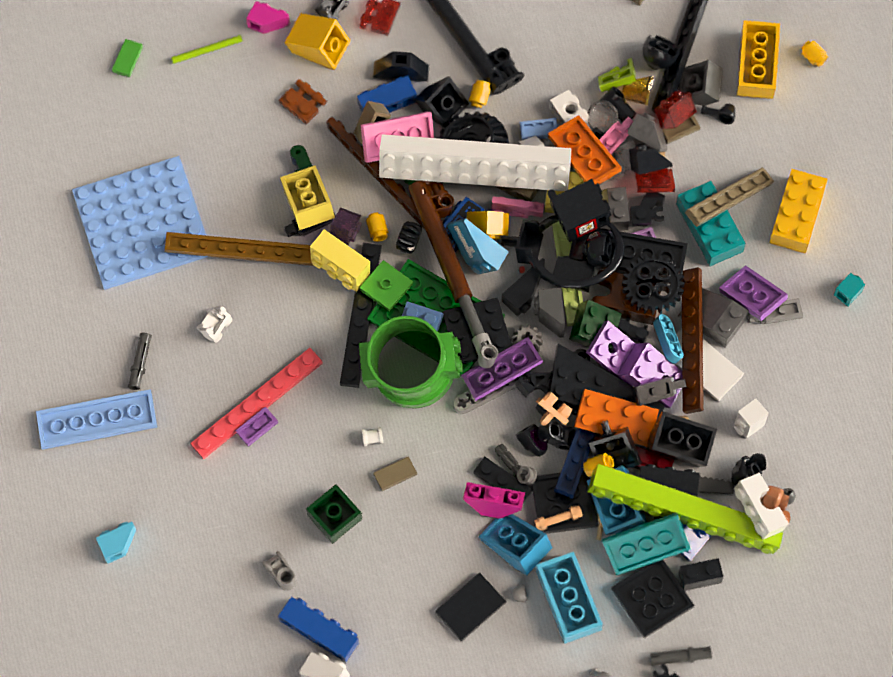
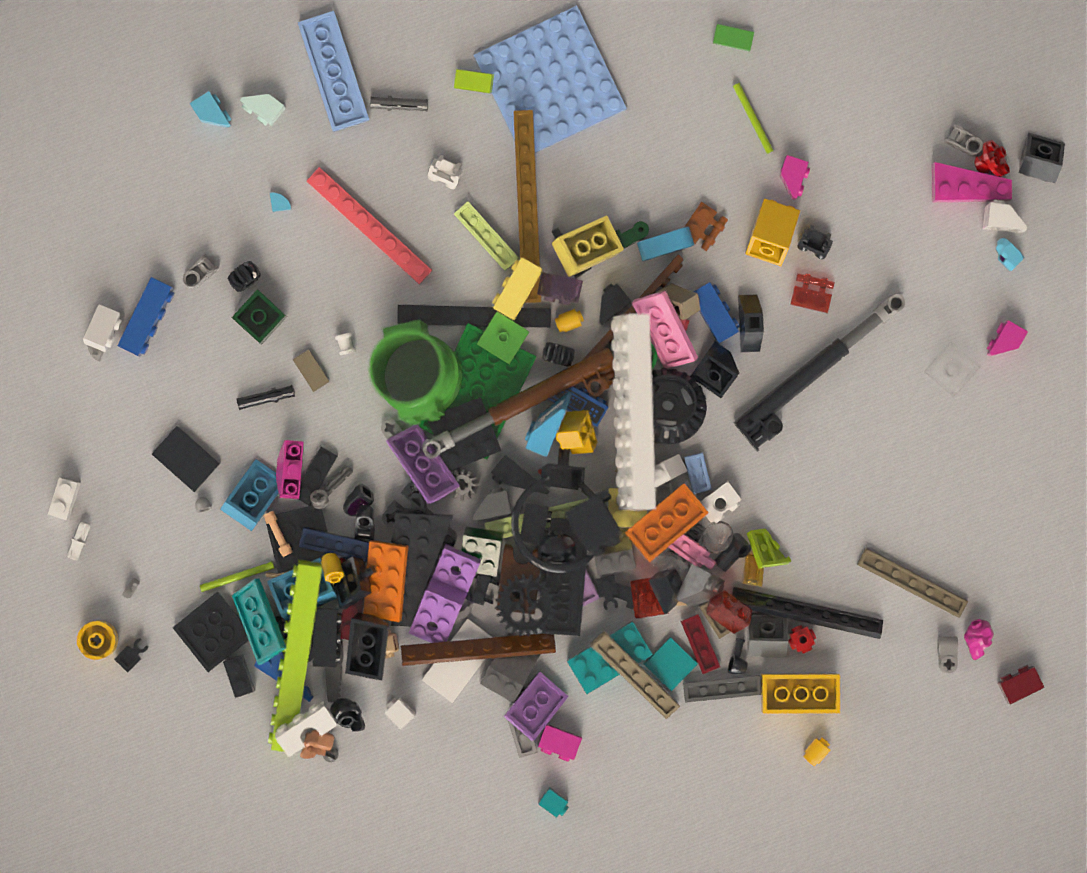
camera: 80 degrees right, 20 degrees up
(121, 488) = (264, 106): none -> light aqua slope
(129, 288) = (473, 81): none -> lime tile
(220, 486) = (279, 202): none -> medium azure tile
(256, 426) = (343, 229): medium lavender plate -> none
(283, 293) = (486, 236): none -> yellowish green plate
(290, 524) = (244, 276): none -> black gear
(315, 132) = (665, 244): none -> dark azure beam
(365, 186) = (612, 302): none -> black slope
(417, 519) = (273, 395): none -> black pin
(431, 316) = (472, 377): medium blue plate -> none
(479, 94) = (729, 408): yellow brick -> none
(518, 207) = (606, 461): bright pink hinge -> none
(560, 414) = (381, 516): light nougat hips -> none
(569, 597) = (200, 552): medium azure brick -> none
(597, 569) = (237, 576): none -> lime bar
(657, 390) = (415, 619): hinge -> none
(659, 52) = (797, 590): black cylinder -> none
(668, 339) = (489, 616): medium azure beam -> none
(690, 654) = (158, 663): dark grey pin -> none
(703, 143) = (700, 644): none -> dark red plate
(705, 51) = (796, 633): none -> red brick
(721, 170) = (670, 664): none -> teal tile
(748, 129) = (722, 688): none -> dark grey plate
(791, 275) = (559, 742): none -> dark pink brick
(798, 211) = (633, 746): yellow brick -> none

